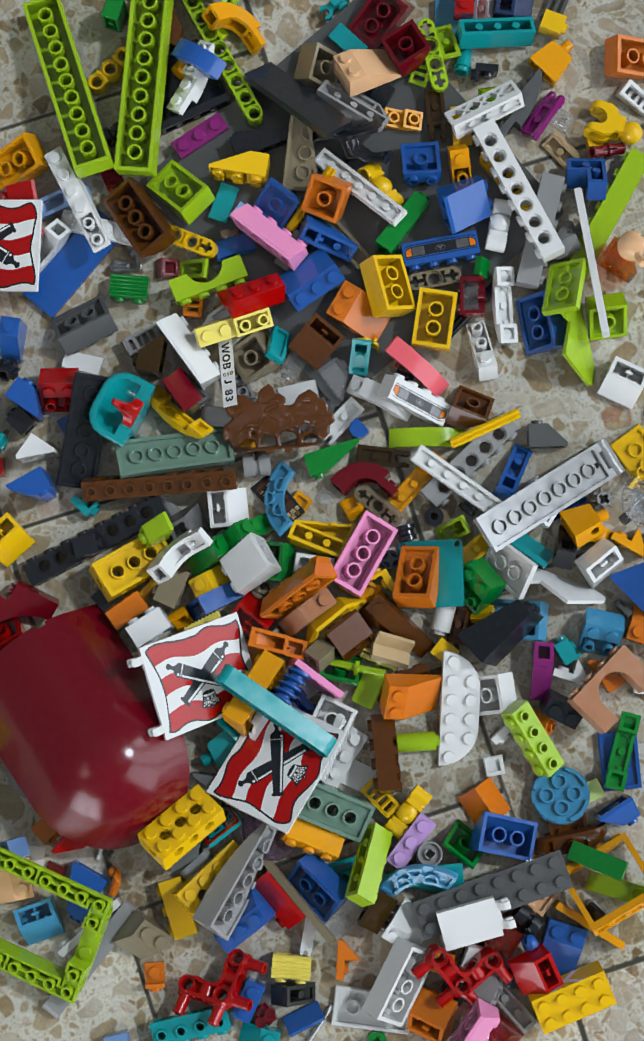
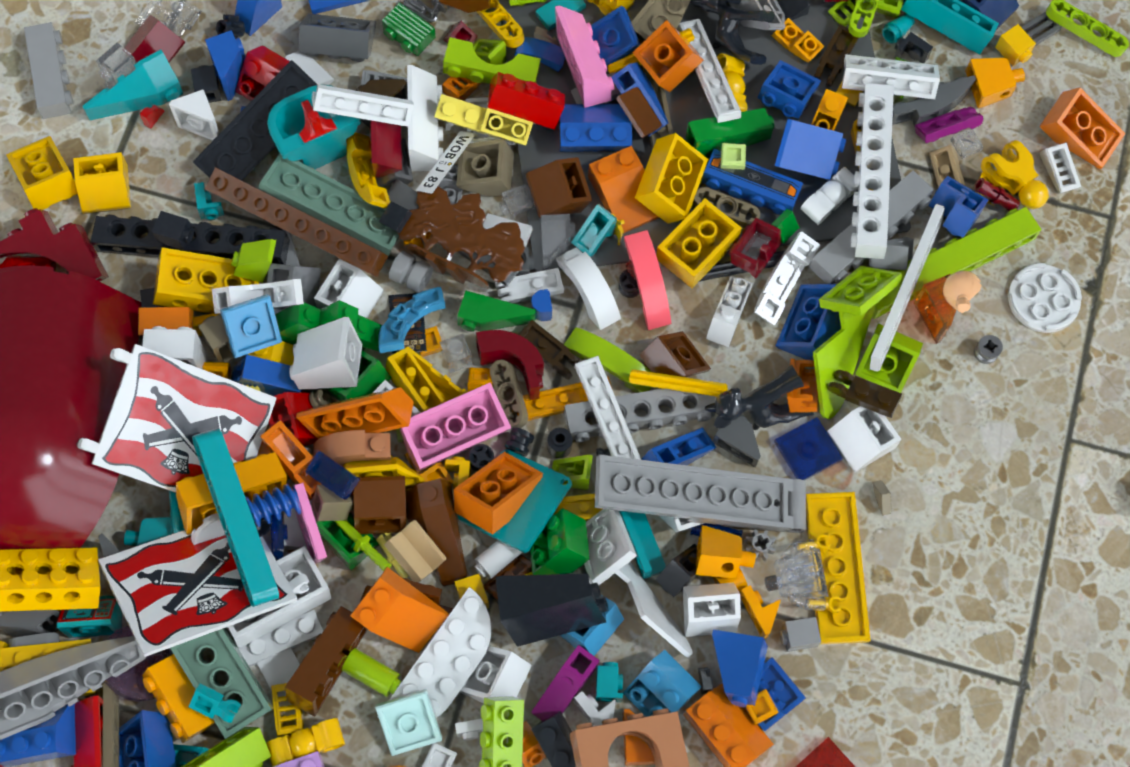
camera: 30 degrees right, 15 degrees down
(35, 485) = (169, 143): blue slope -> none
(153, 378) = (362, 105): none -> white fence
(188, 577) = (251, 325): none -> dark azure tile
(222, 435) = (395, 217): none -> black tile
(277, 344) = (516, 166): teal tile -> none
(311, 639) = (332, 475): none -> clear blue tile
(334, 252) = (639, 112): none -> reddish brown slope
(339, 829) = (210, 703): none -> teal plate
(368, 690) = (357, 579): lime slope -> none
(413, 399) = (620, 304): white brick -> none
(418, 242) = (733, 156): none -> yellowish green tile
(461, 757) = (409, 722): none -> light aqua tile
(549, 404) = (759, 402): none -> black animal
(564, 375) = (804, 398): none -> orange hinge
(592, 413) = (808, 449): none -> clear blue plate
(610, 356) = (865, 393): none -> dark brown hinge

